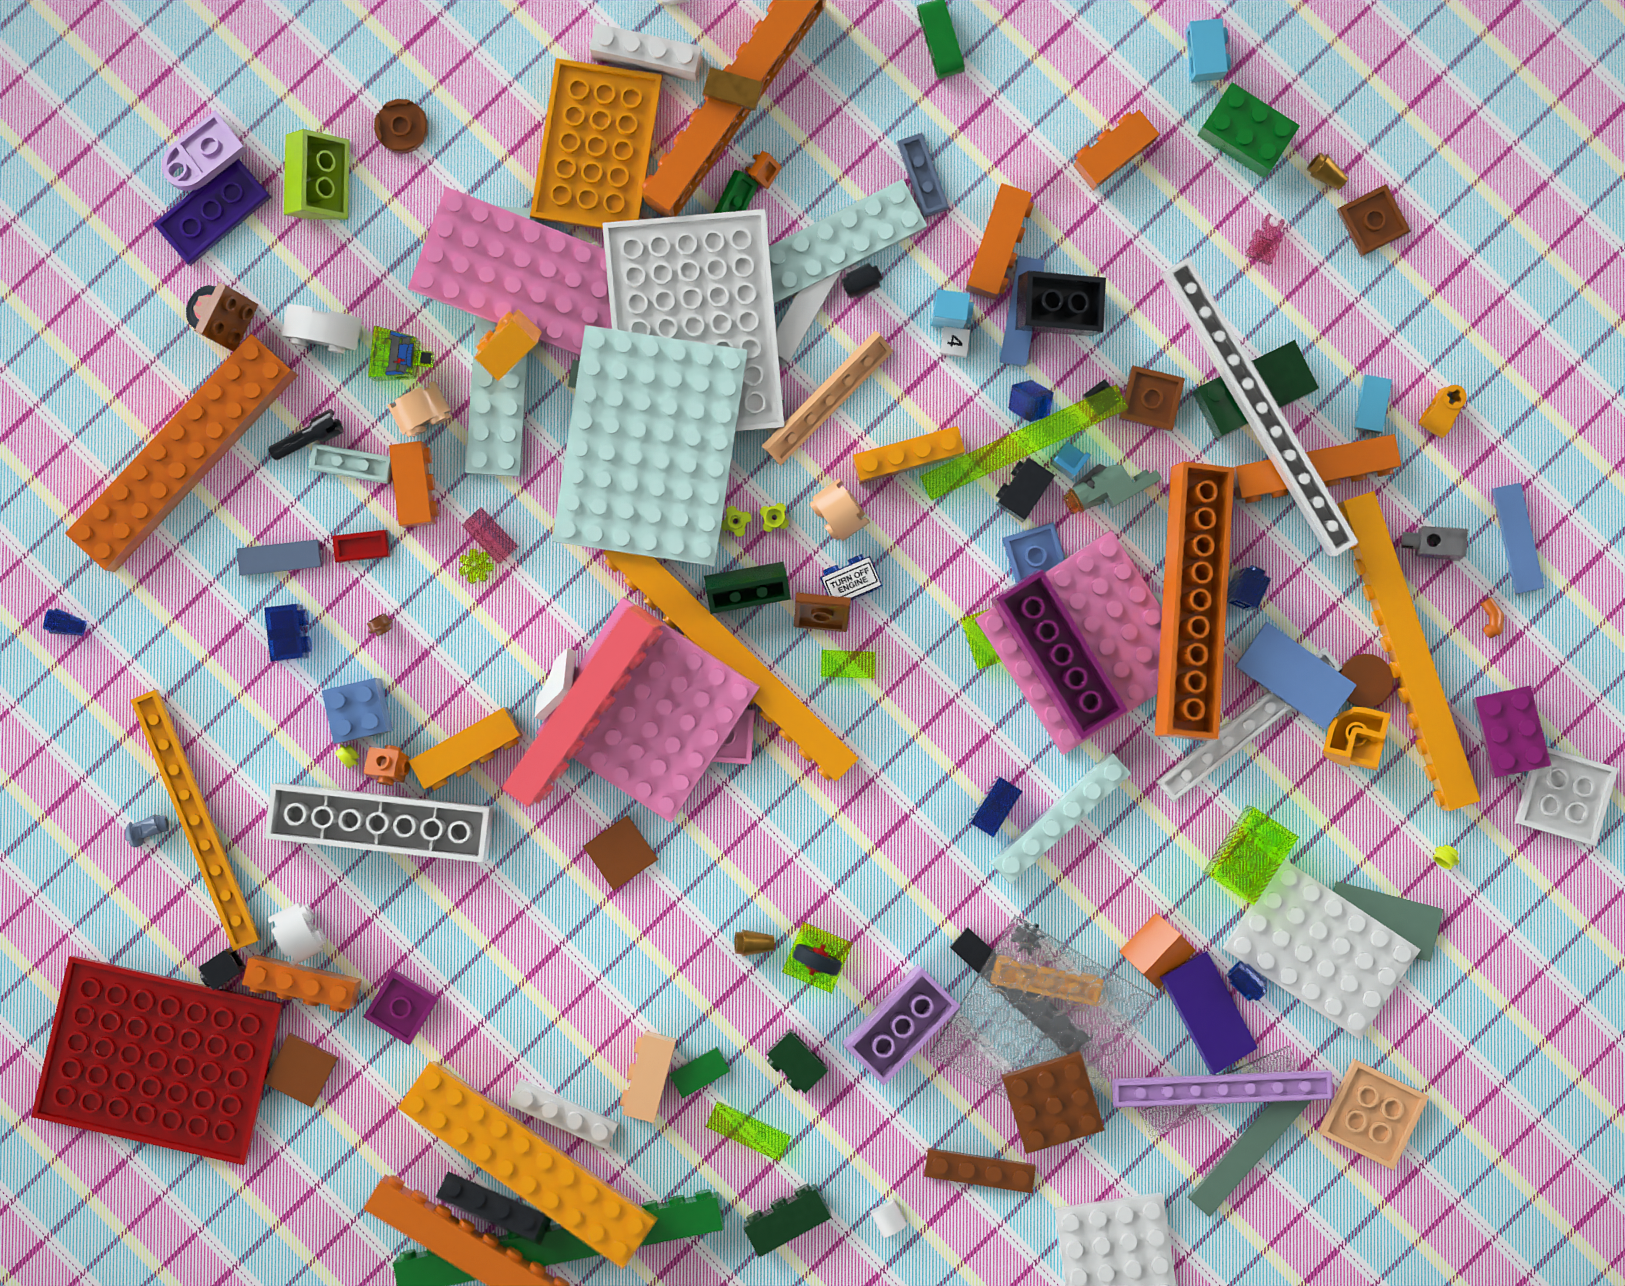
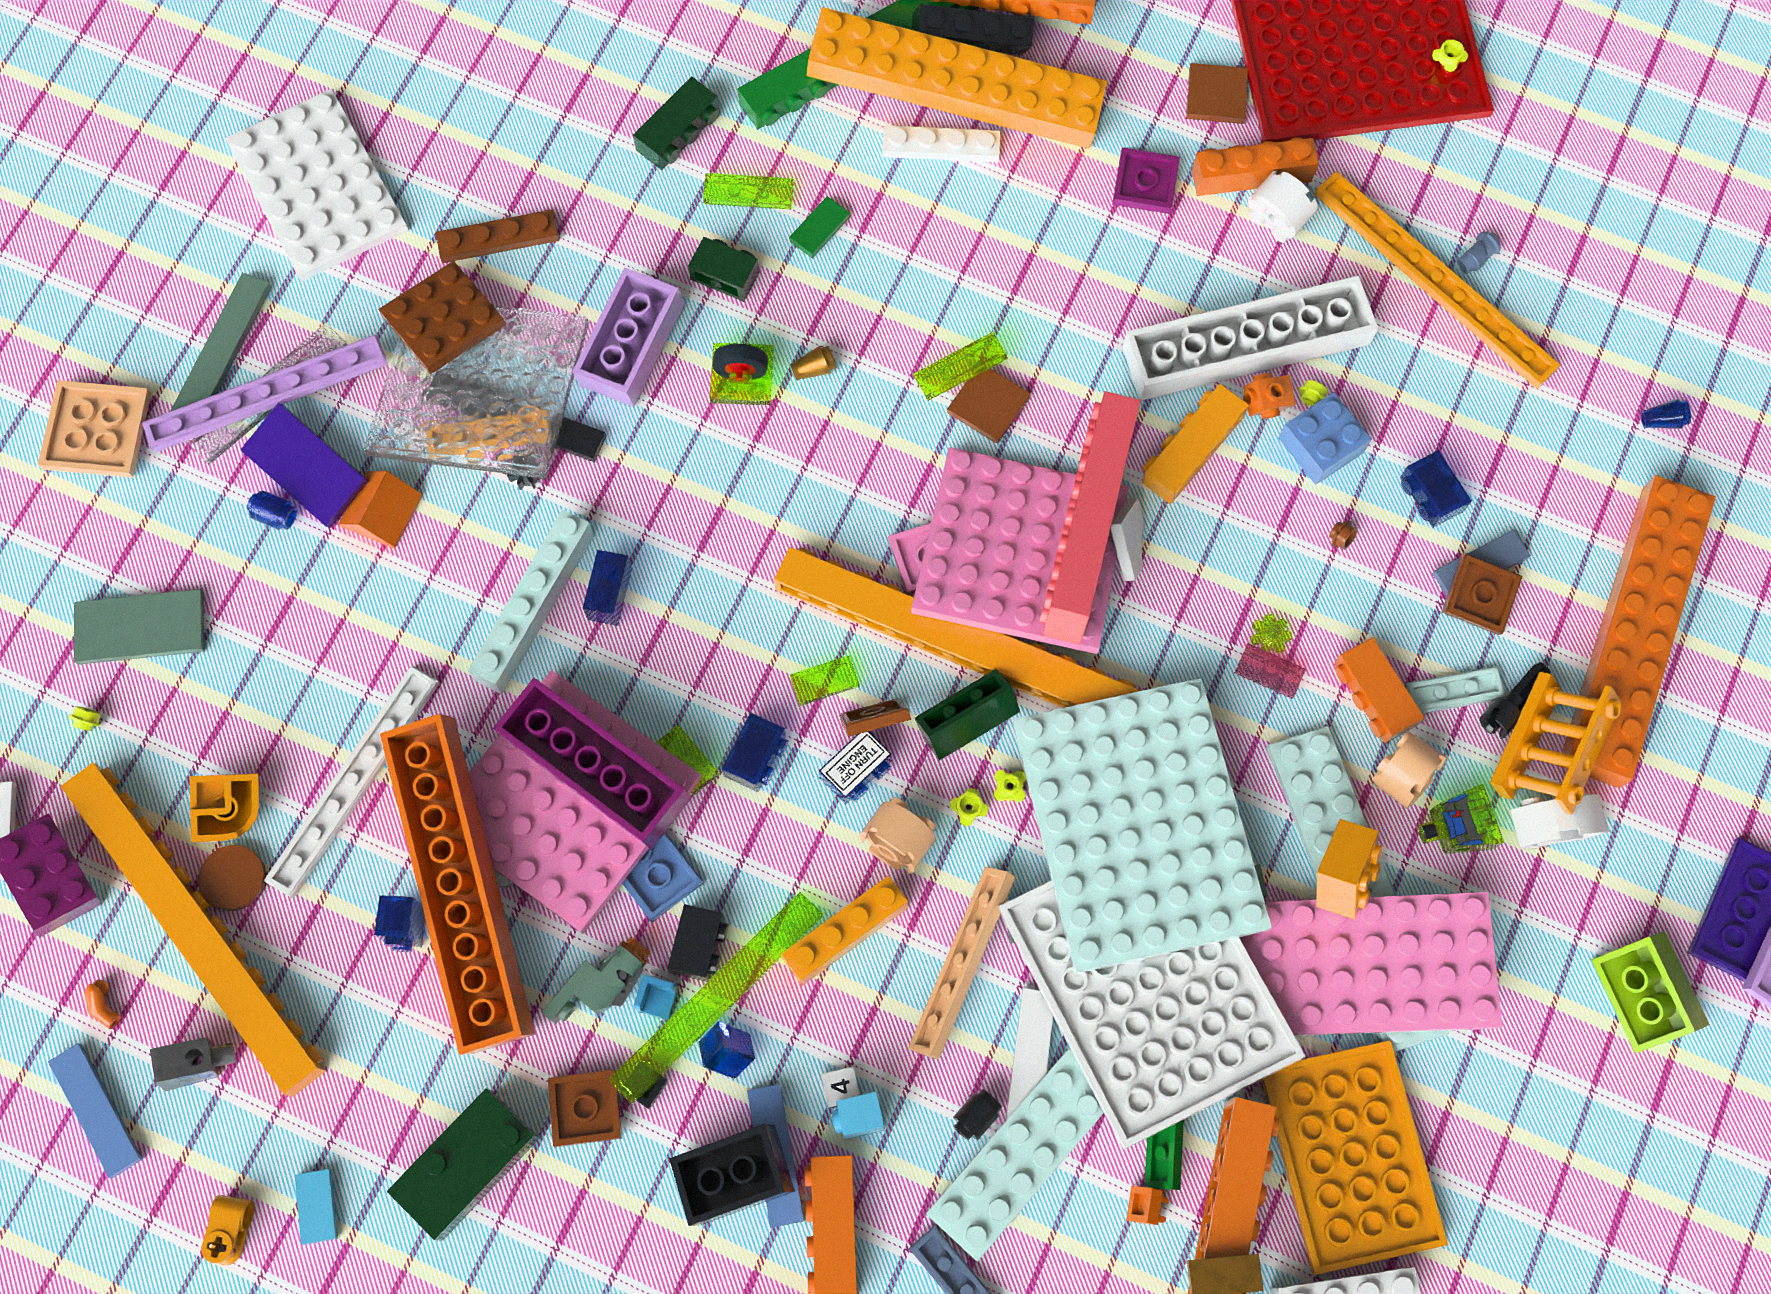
camera: 160 degrees right, 15 degrees down
(74, 1022) = (1452, 48): none -> neon yellow plate
(220, 314) = (1674, 790): dark orange plate -> none
(221, 968) = (1339, 151): black brick -> none
(292, 531) = (1482, 594): none -> dark orange tile
(304, 410) = (1534, 722): none -> light orange fence
(361, 546) = (1401, 608): red tile -> none
(401, 126) = (1585, 1092): dark orange tile -> none
(632, 892) = (960, 366): none -> clear neon green tile
(648, 1076) = (870, 203): light nougat brick -> none
(888, 1218) = (574, 160): white brick -> none
(925, 623) = (755, 752): none -> clear blue brick
(1250, 854) = (307, 636): clear neon green brick -> none
(1259, 407) = (454, 1133): white brick -> none
(1295, 675) = (315, 849): medium blue tile -> none
(1321, 949) = (200, 573): white plate -> none
(1331, 463) = (361, 1100): orange brick -> none

